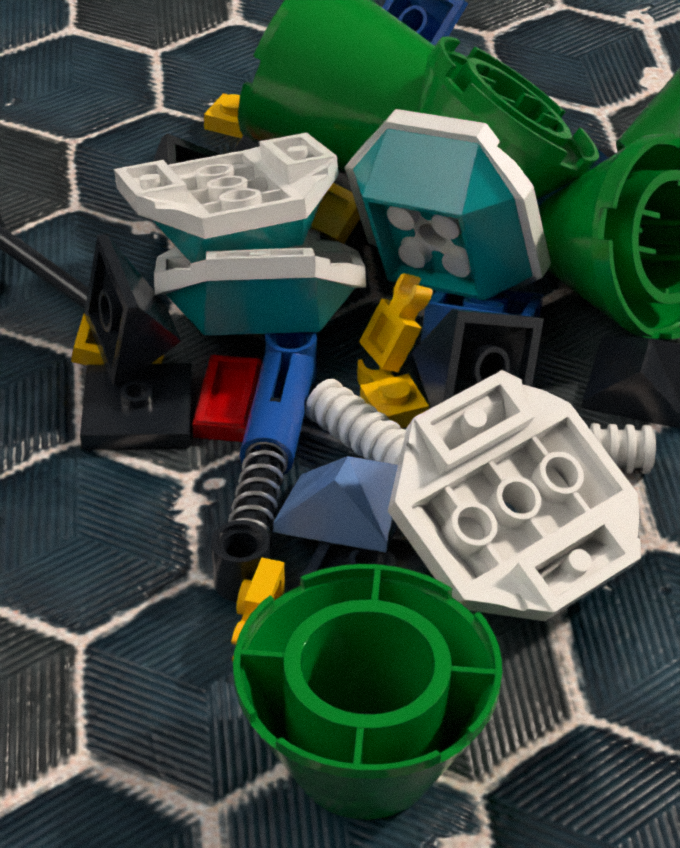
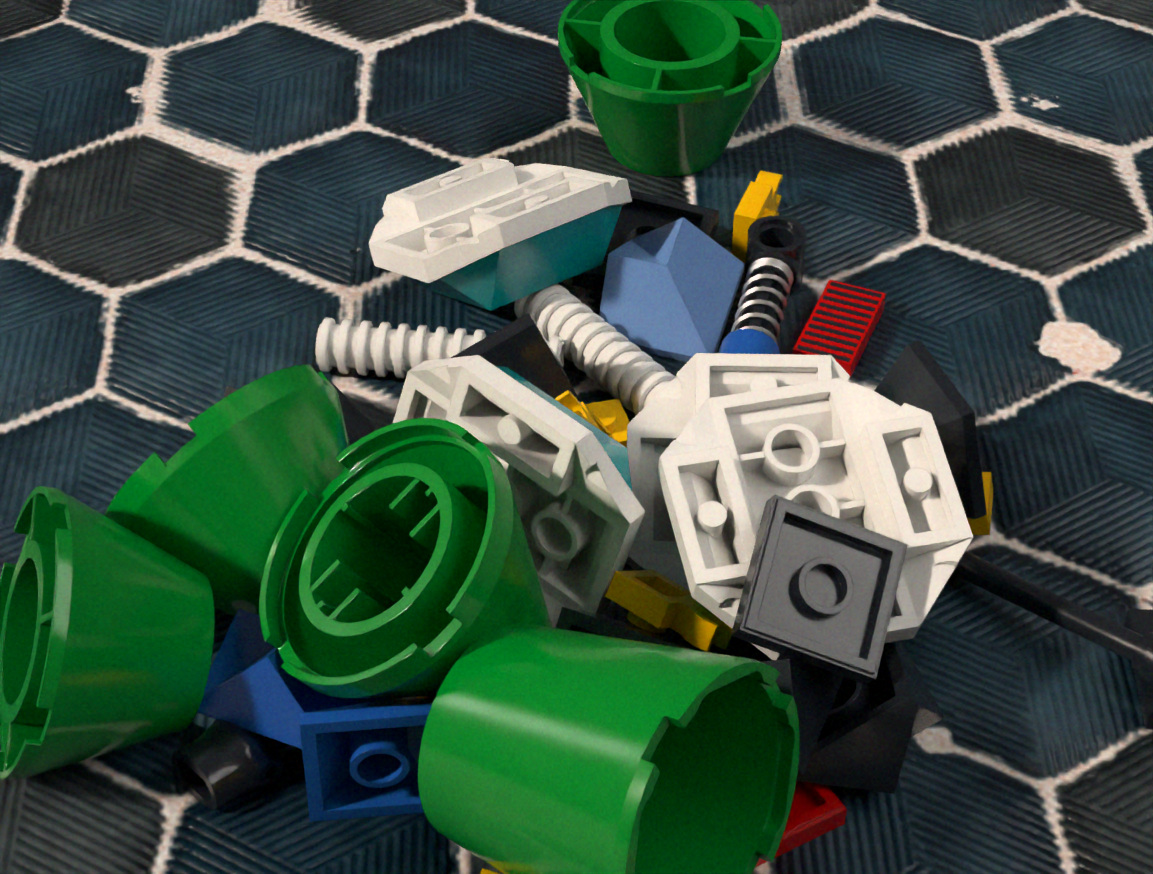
camera: 175 degrees left, 0 degrees up
(181, 510) = (841, 324): none -> tile
(223, 141) = (820, 590): none -> plate

